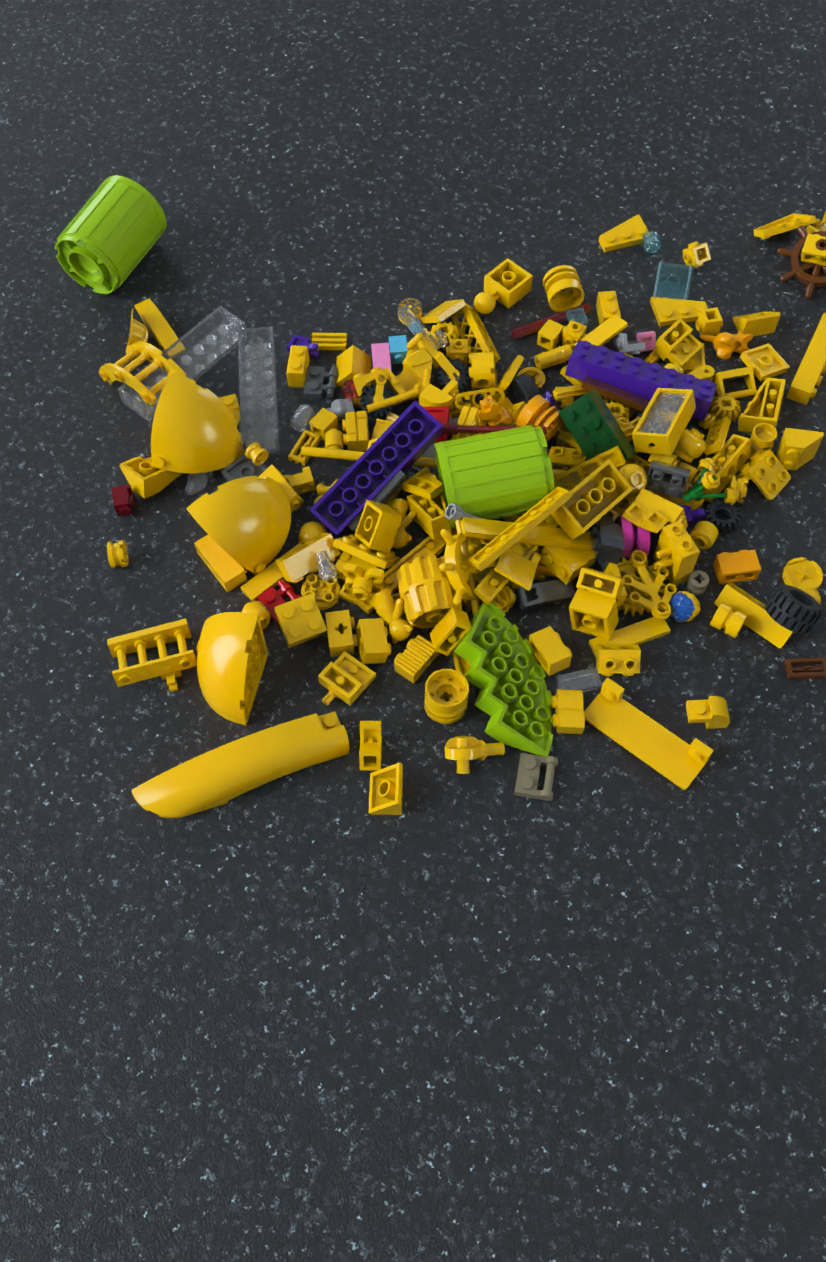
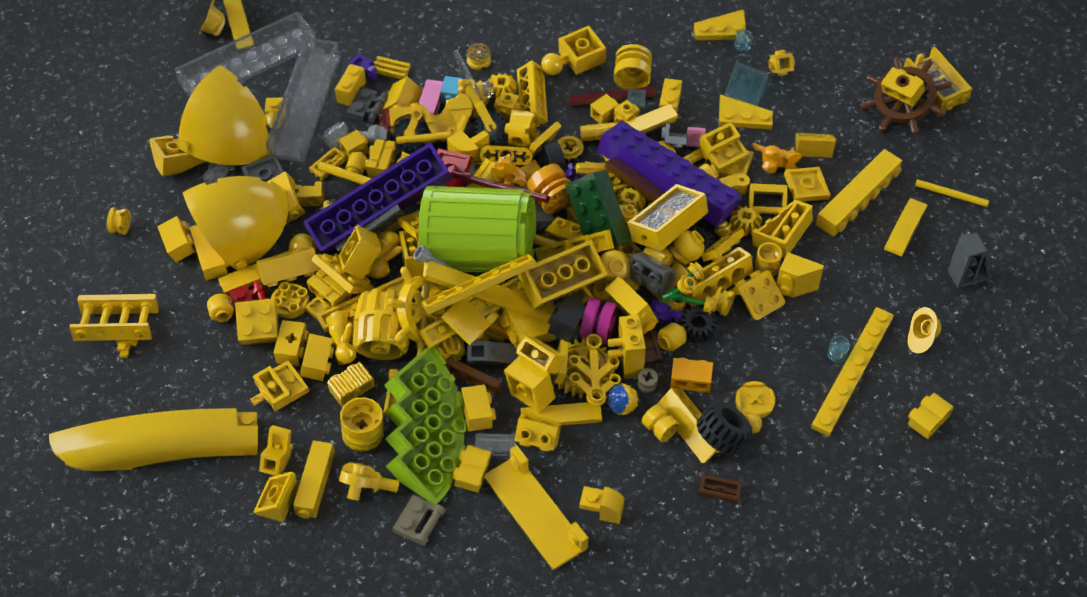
camera: 15 degrees right, 5 degrees down
(123, 500) = (143, 172): dark red brick -> none
(139, 353) = (205, 40): yellow fence -> none
(184, 557) = (176, 238): none -> yellow brick
(231, 663) = (179, 345): yellow brick -> none
(256, 453) = (277, 158): yellow wheel -> none
(325, 566) = (298, 278): clear cone -> none
(363, 582) = (324, 299): yellow plant -> none
(418, 764) = (314, 479): none -> yellow brick
(443, 311) = (508, 63): yellow tile -> none
(450, 631) = (386, 365): yellow brick -> none
(533, 620) = (473, 376): none -> reddish brown tile
(648, 520) = (608, 304): yellow slope -> none
(709, 322) = (765, 132): yellow brick -> none
(784, 224) = (884, 52): yellow wing -> none

